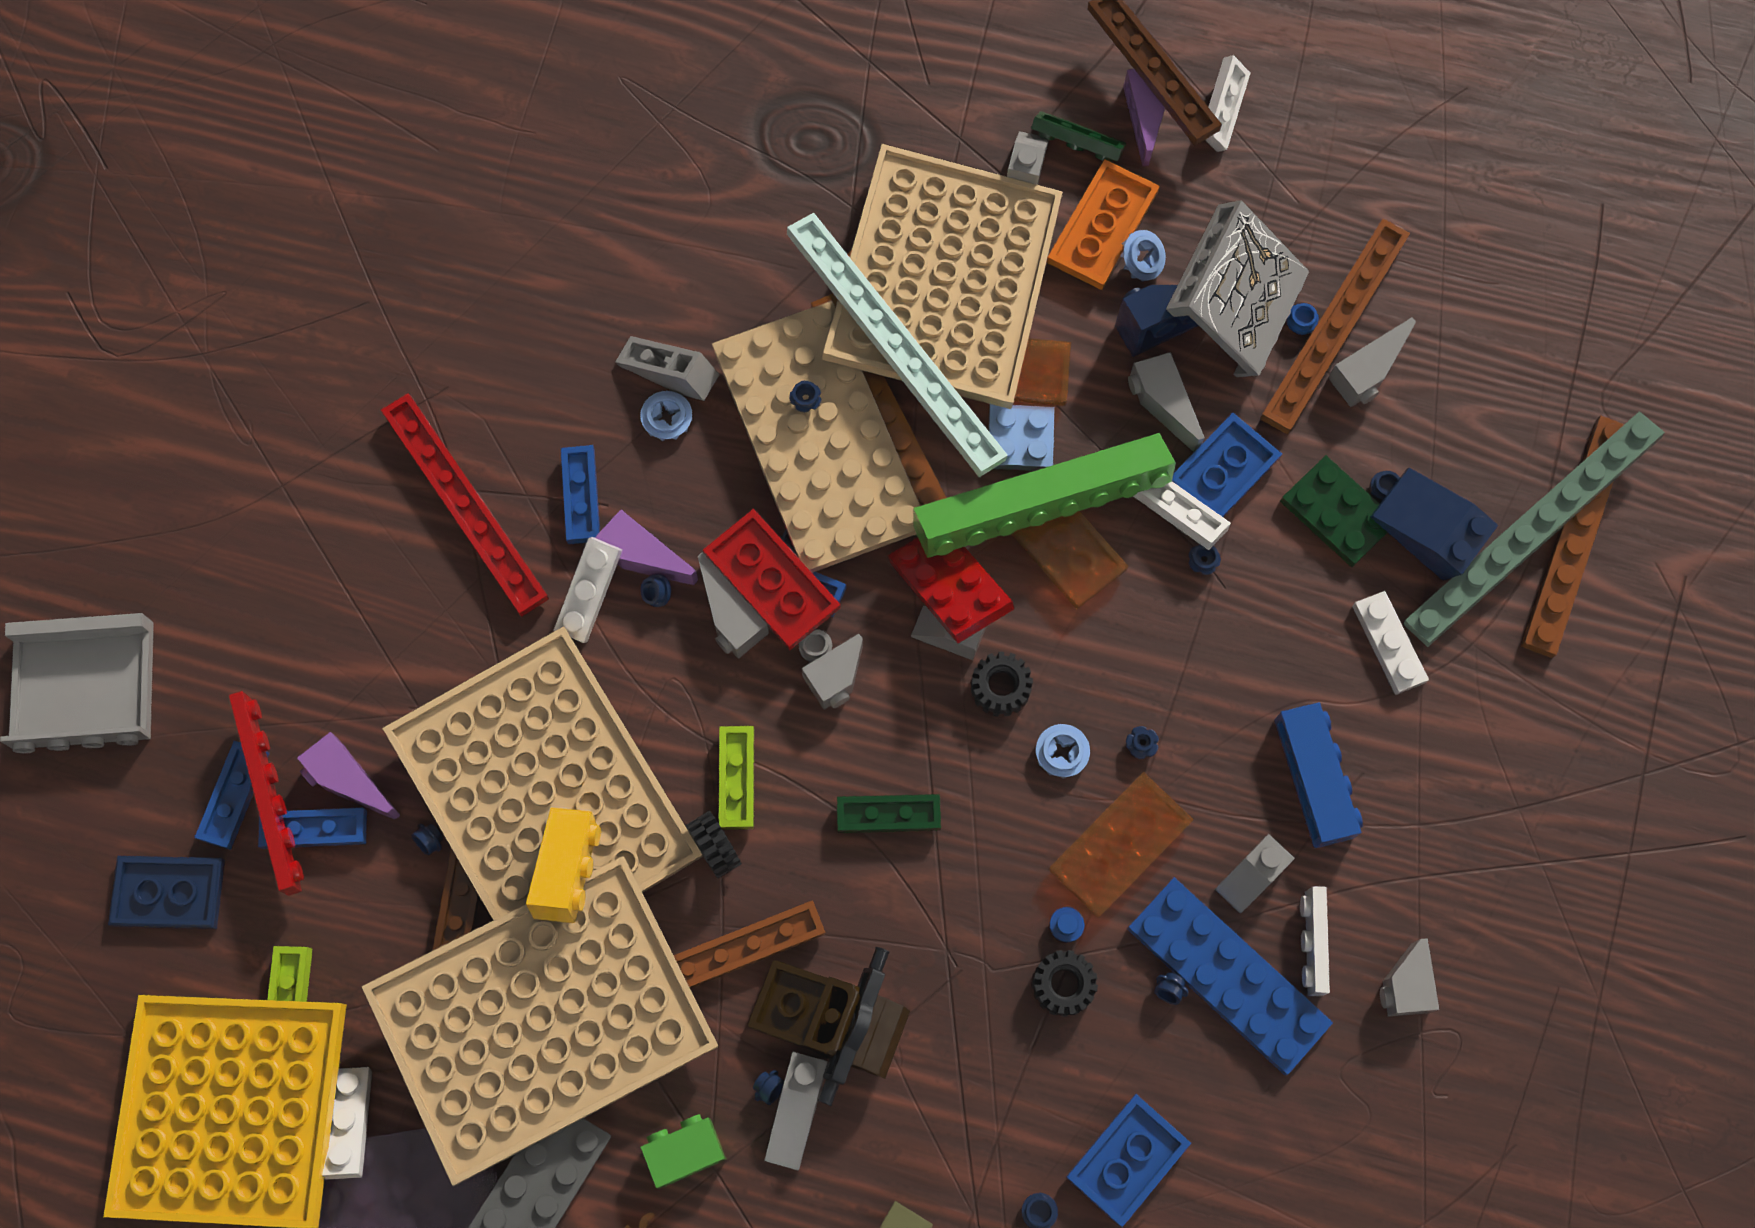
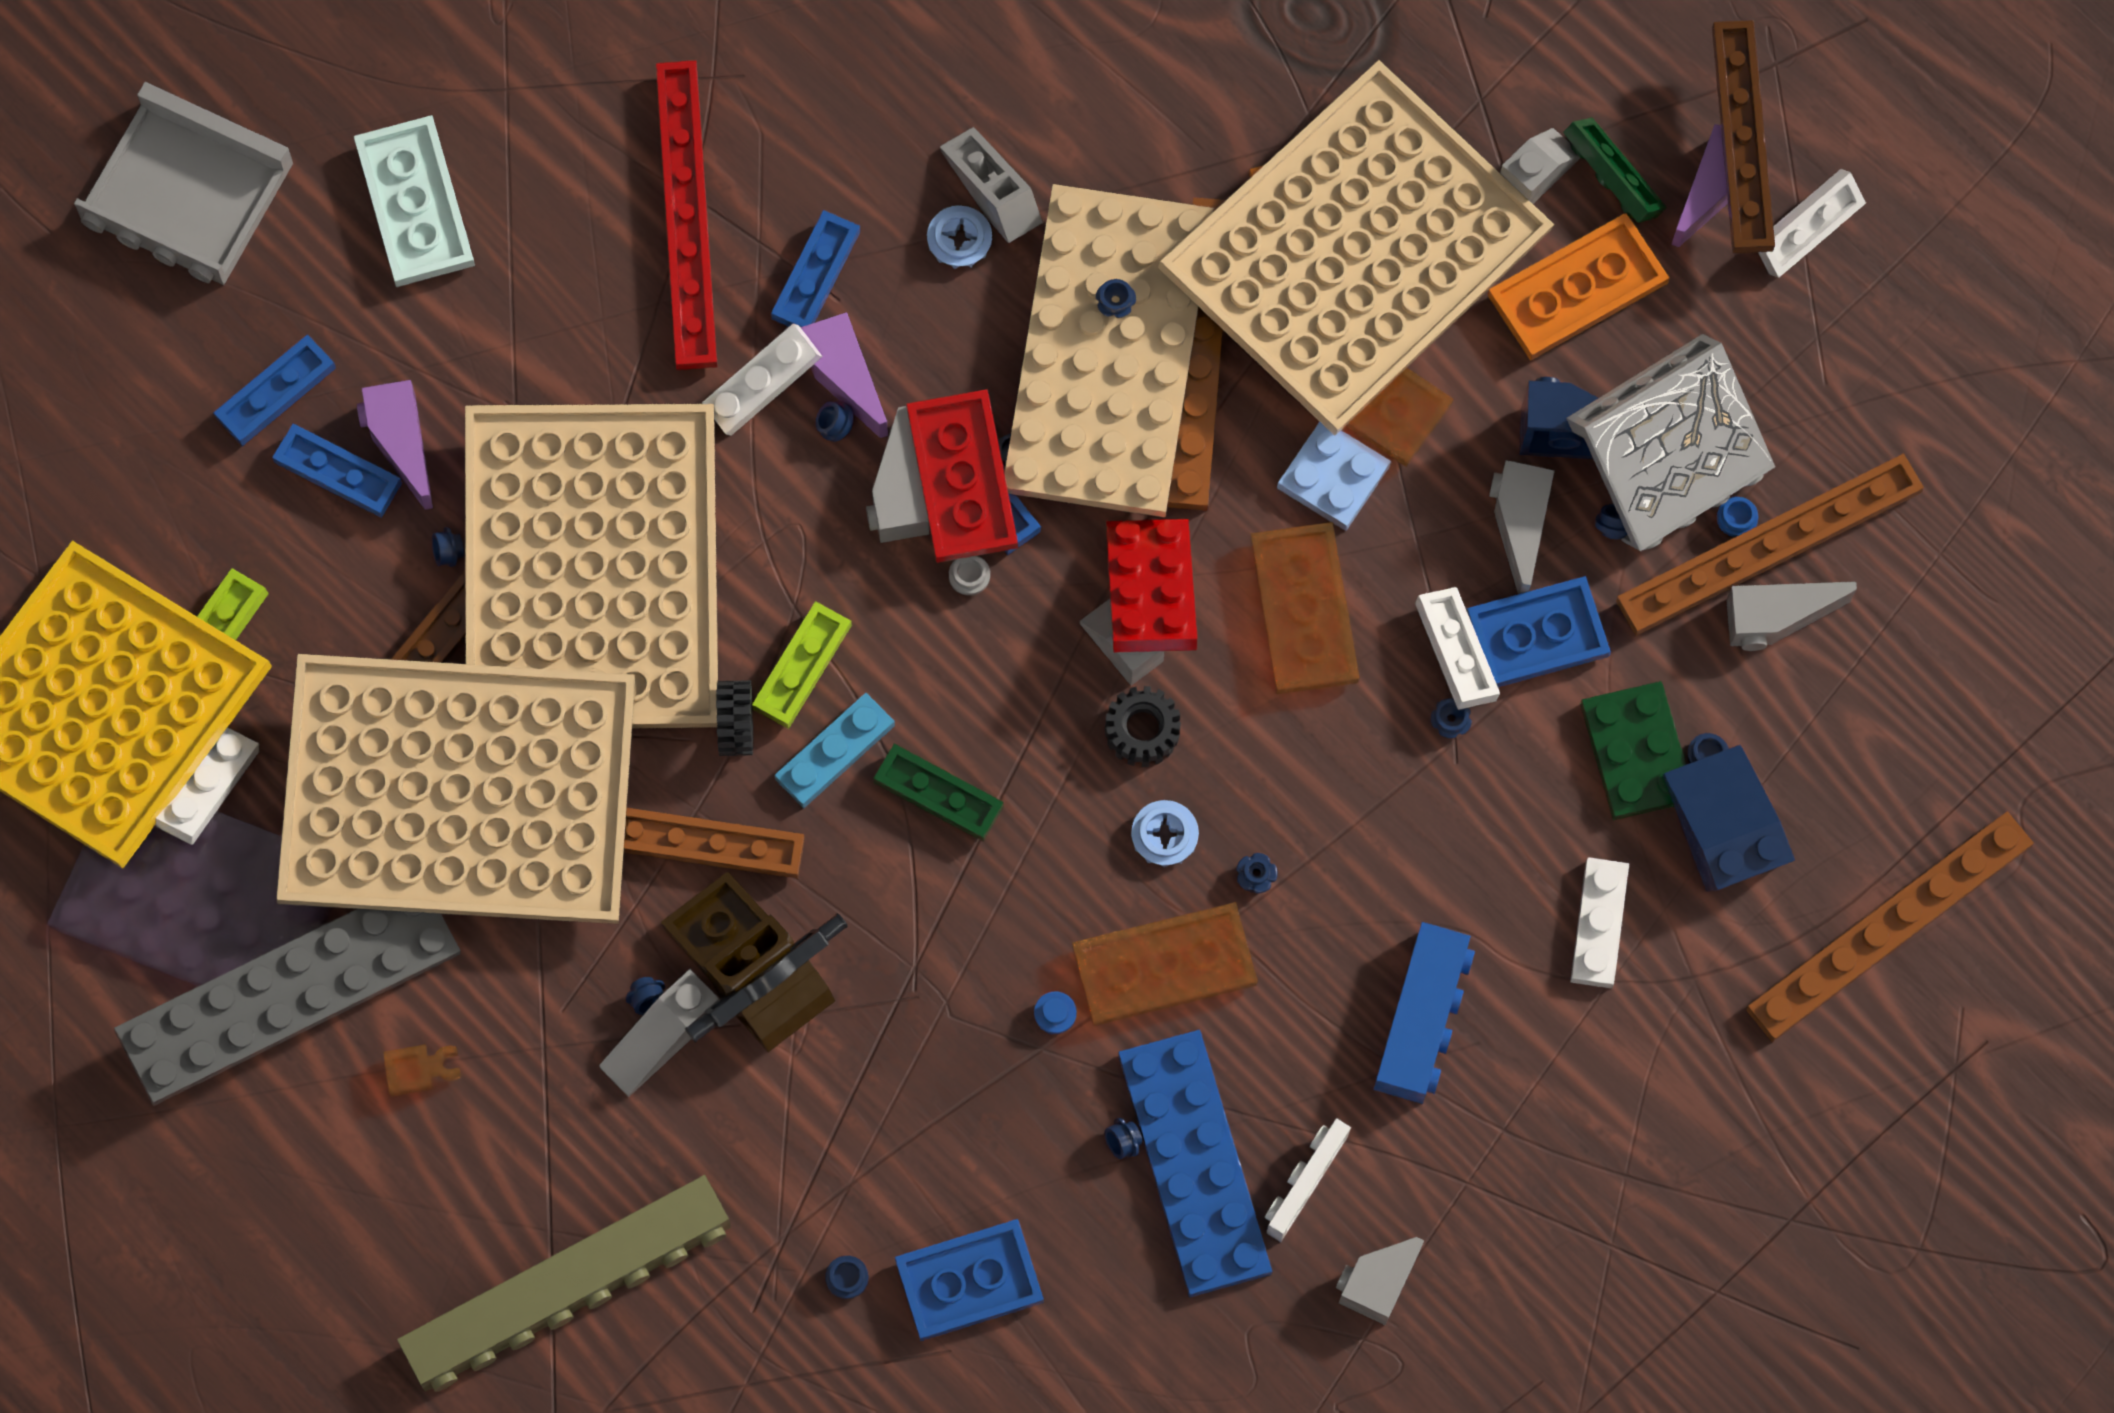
camera: 30 degrees right, 0 degrees up
(166, 892) = (155, 453): dark blue tile -> none
(259, 601) = (414, 201): none -> light aqua plate
(269, 804) = (308, 422): red plate -> none
(563, 865) = (567, 648): yellow brick -> none
(683, 1151) = (522, 1007): bright green brick -> none
(795, 825) = (834, 750): none -> dark azure plate
(834, 673) = (973, 614): light grey slope -> none
(897, 345) = (1245, 294): light aqua plate -> none
(1043, 495) = (1311, 548): bright green brick -> none
(1080, 968) = (1005, 1045): black tyre -> none
(1153, 261) = (1611, 358): light blue gear -> none
(1225, 366) = (1610, 523): none -> dark blue plate
(1254, 873) = (1287, 1074): light grey slope -> none
(1533, 529) = (1841, 889): sand green plate -> none

